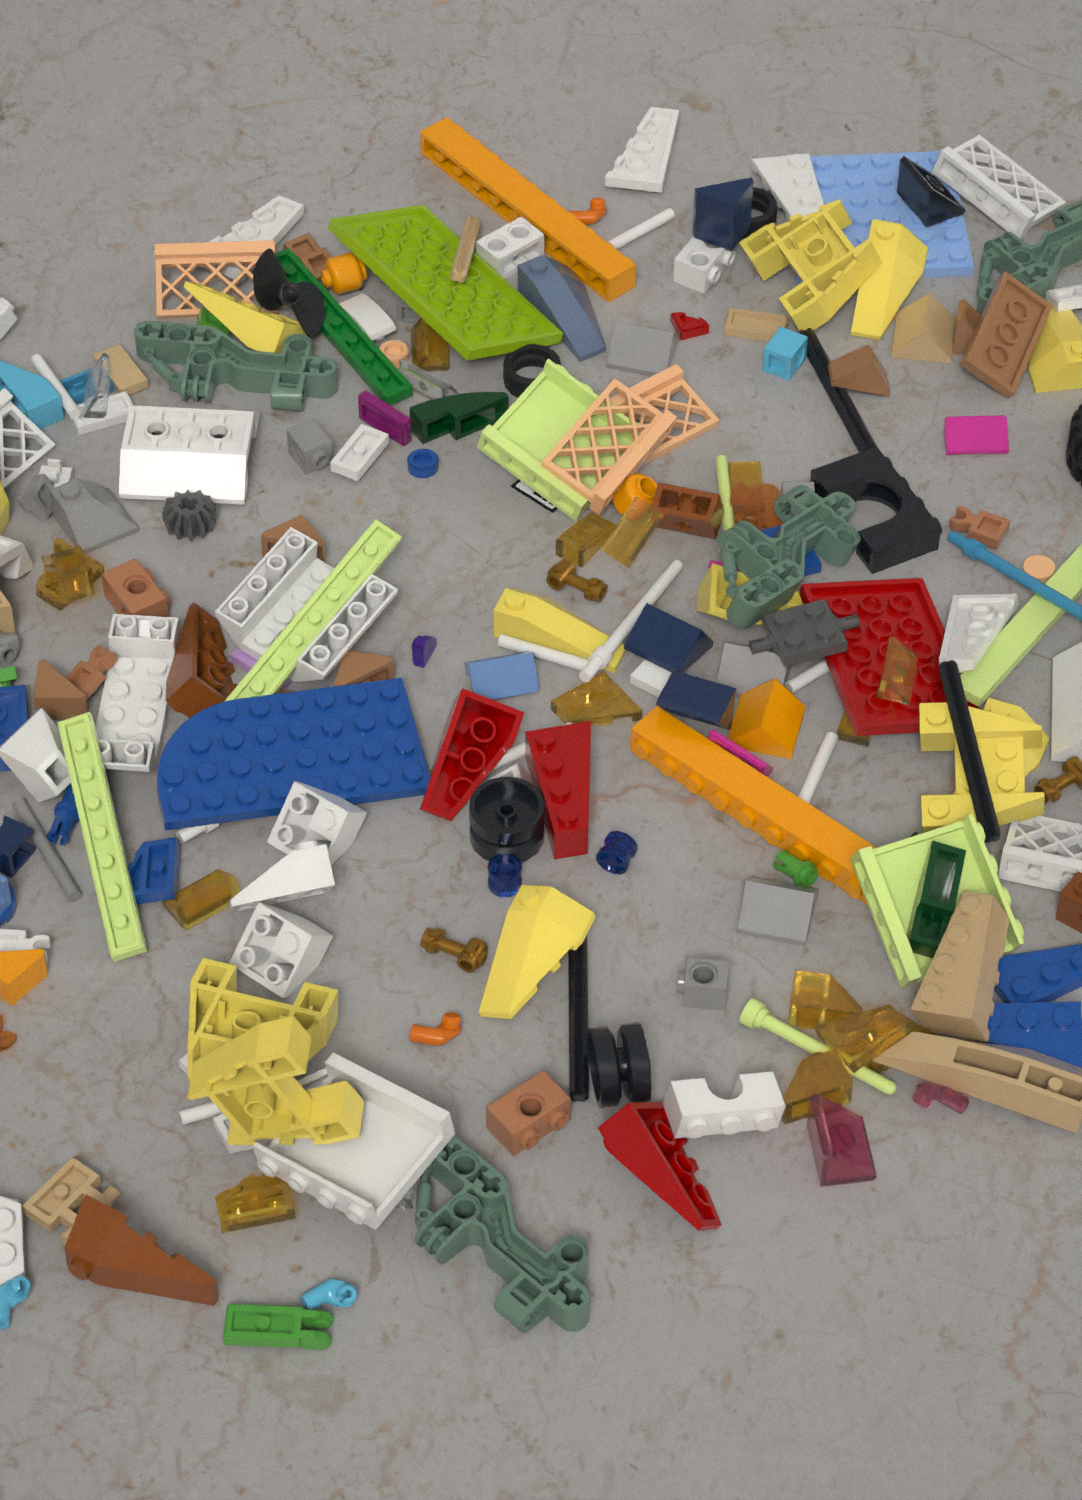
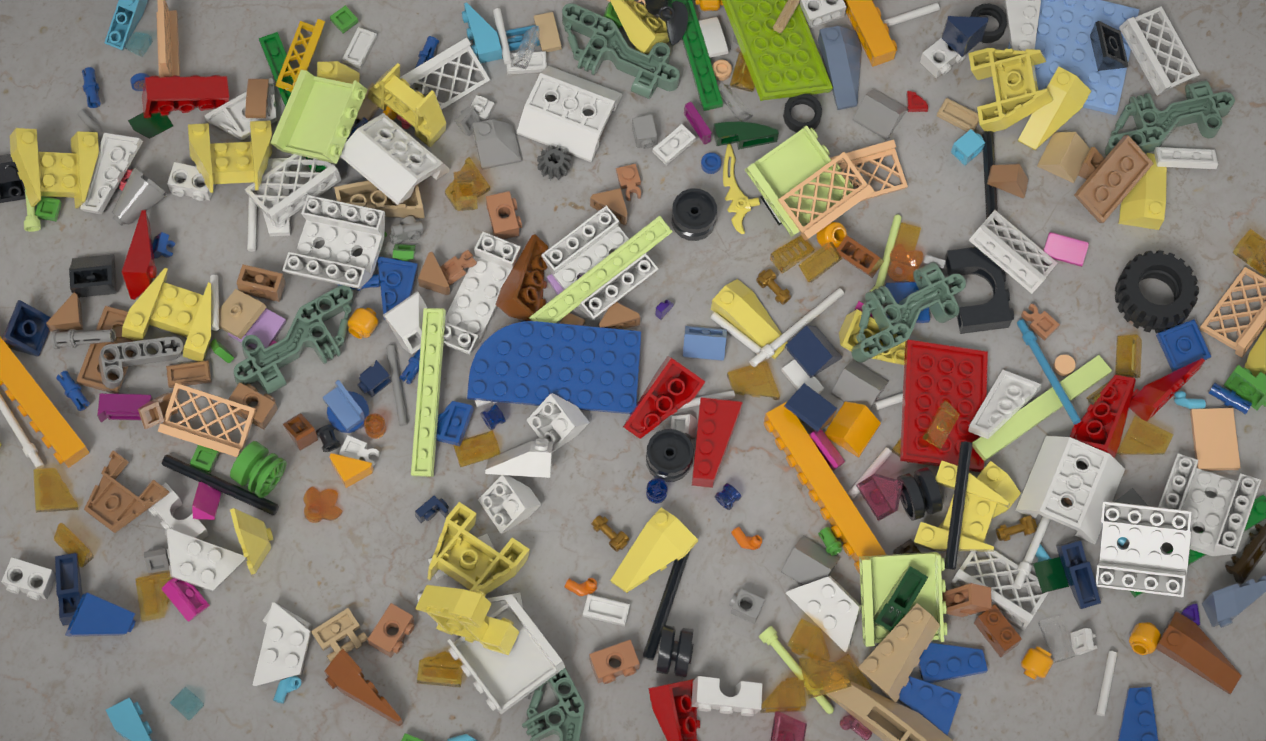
camera: 15 degrees right, 20 degrees up
(36, 901) = (374, 420): none -> clear orange wheel
(151, 1189) = (391, 618): none -> nougat brick
(158, 988) = (429, 508): none -> dark blue bracket
(214, 847) = (493, 417): none -> clear blue wheel
(312, 509) = (629, 178): none -> nougat plate
(426, 520) = (694, 214): none -> black wheel
(482, 497) = (740, 202): none -> light yellow piece
(487, 1053) = (606, 610): none -> white tile
(668, 906) = (746, 542): none -> orange arm
(804, 633) = (894, 380): dark grey plate -> none
(832, 945) = (829, 608): none -> white wing
(845, 780) = (881, 494): none -> clear pink slope
(903, 450) = (1013, 261): none -> white fence
(903, 765) = (920, 494): none -> black wheel
(1036, 876) = (967, 600): none -> nougat brick

